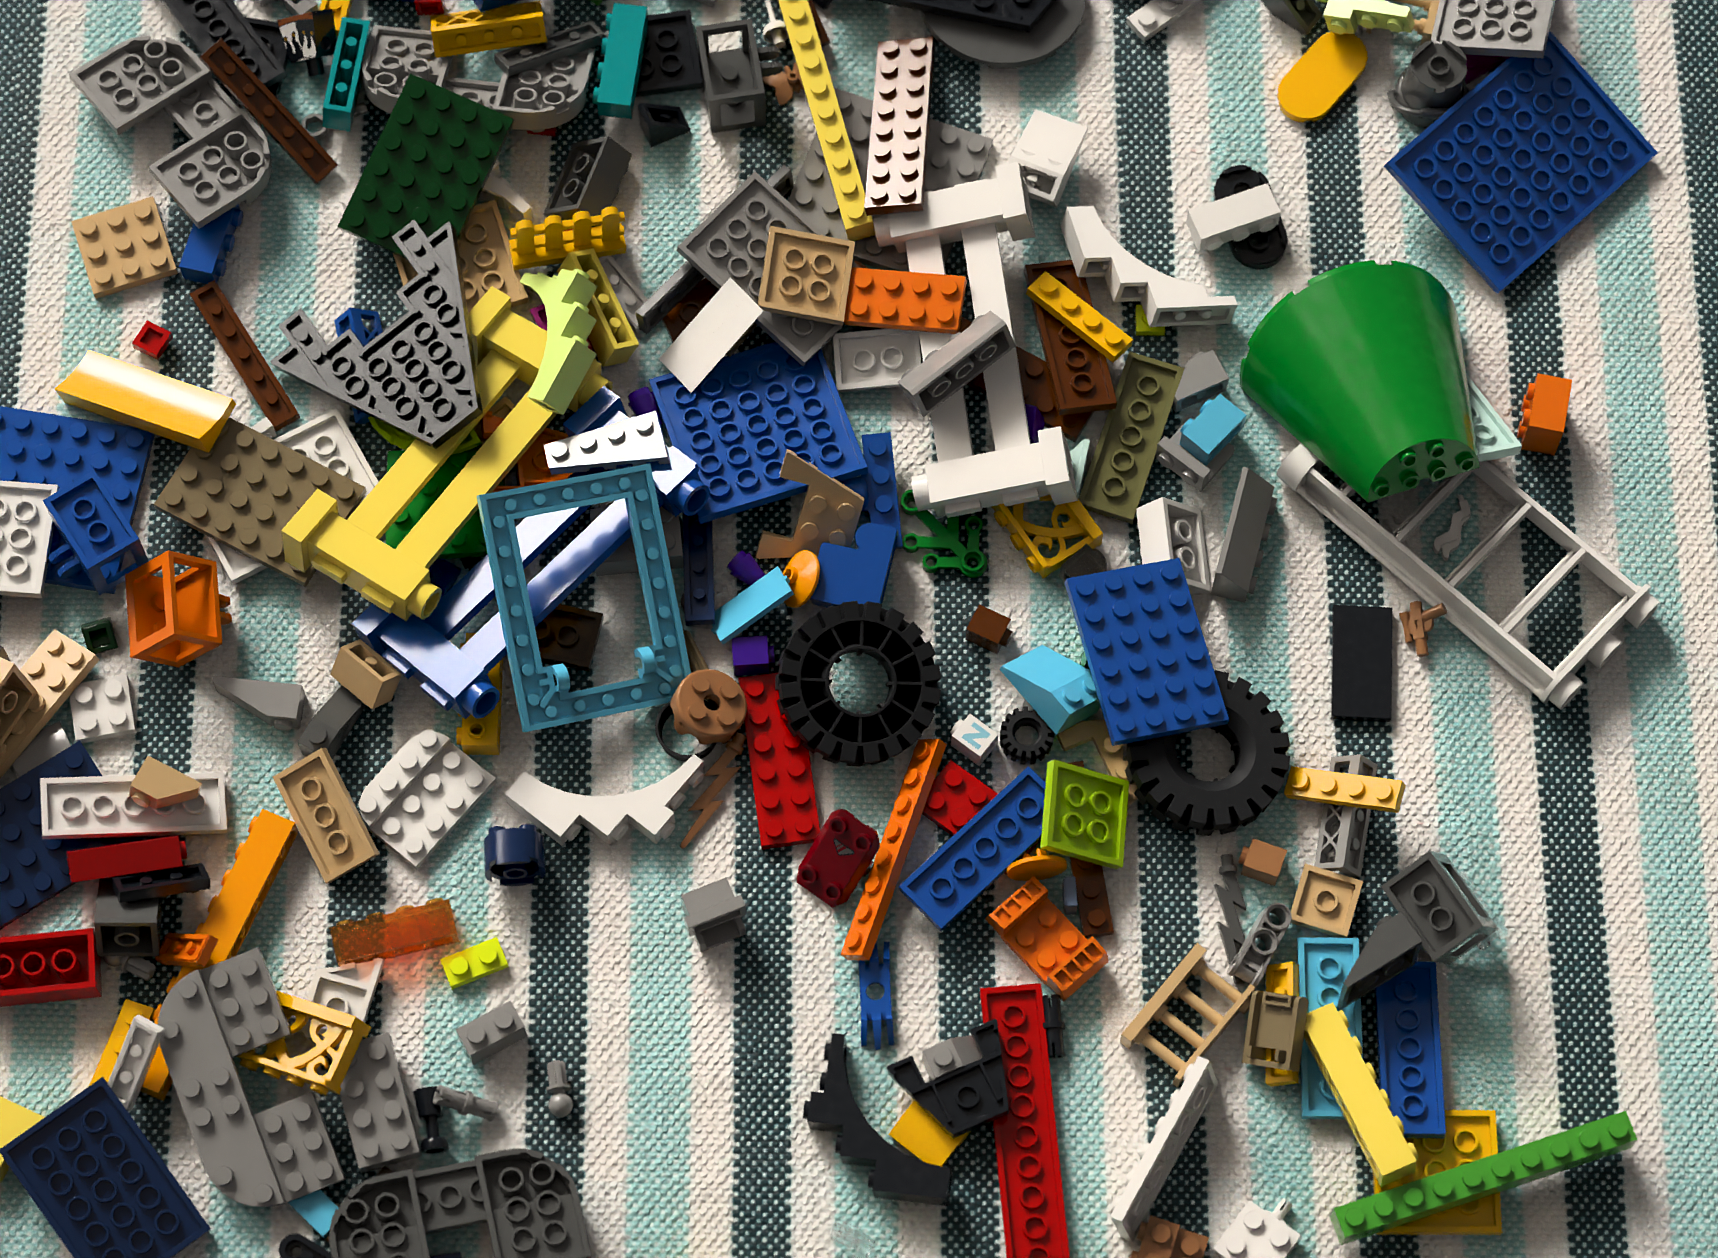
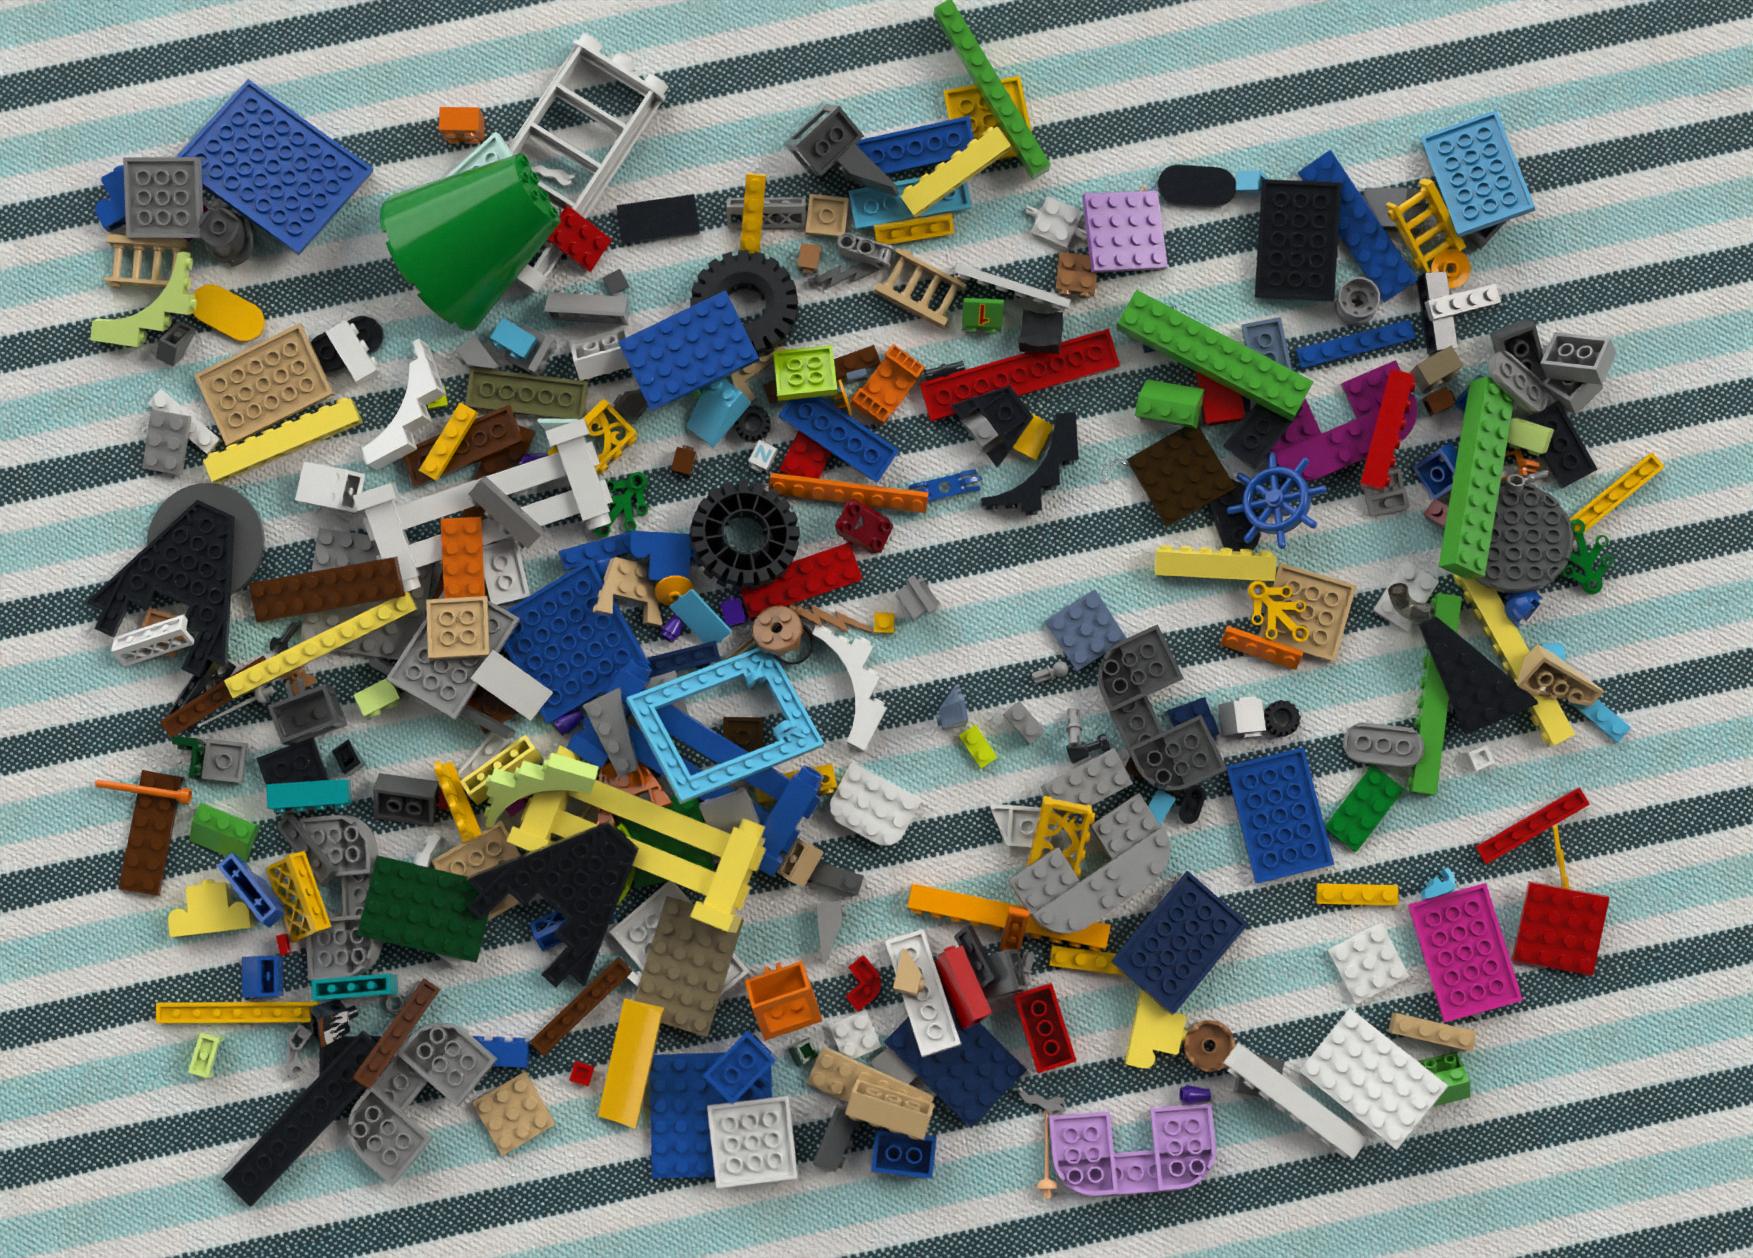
camera: 100 degrees left, 15 degrees up
(135, 1060) = (1096, 942): white tile -> none
(172, 741) = (869, 983): none -> red plate
(326, 815) = (902, 864): tan plate -> none
(395, 933) = (971, 801): clear orange brick -> none
(461, 579) = (728, 810): none -> light grey piece
(514, 855) = (905, 734): dark blue brick -> none
(533, 933) = (953, 710): none -> sand blue wedge
(612, 1156) = (1085, 630): none -> sand blue plate
(689, 865) = (884, 622): none -> yellow plate
(734, 165) = (377, 698): none -> yellowish green brick
(845, 72) = (285, 638): none -> black bar
(1083, 1177) = (1041, 332): none -> black brick
(1125, 114) = (282, 441): none -> light yellow brick
(1126, 1095) = (982, 315): none -> bright green slope
(1209, 102) = (264, 384): none -> tan plate
(1276, 587) = (616, 282): none -> dark grey tile
(1278, 1024) = (918, 230): dark tan container -> none
(1346, 540) = (579, 239): none -> red plate
(1418, 623) = (624, 186): medium nougat piece -> none

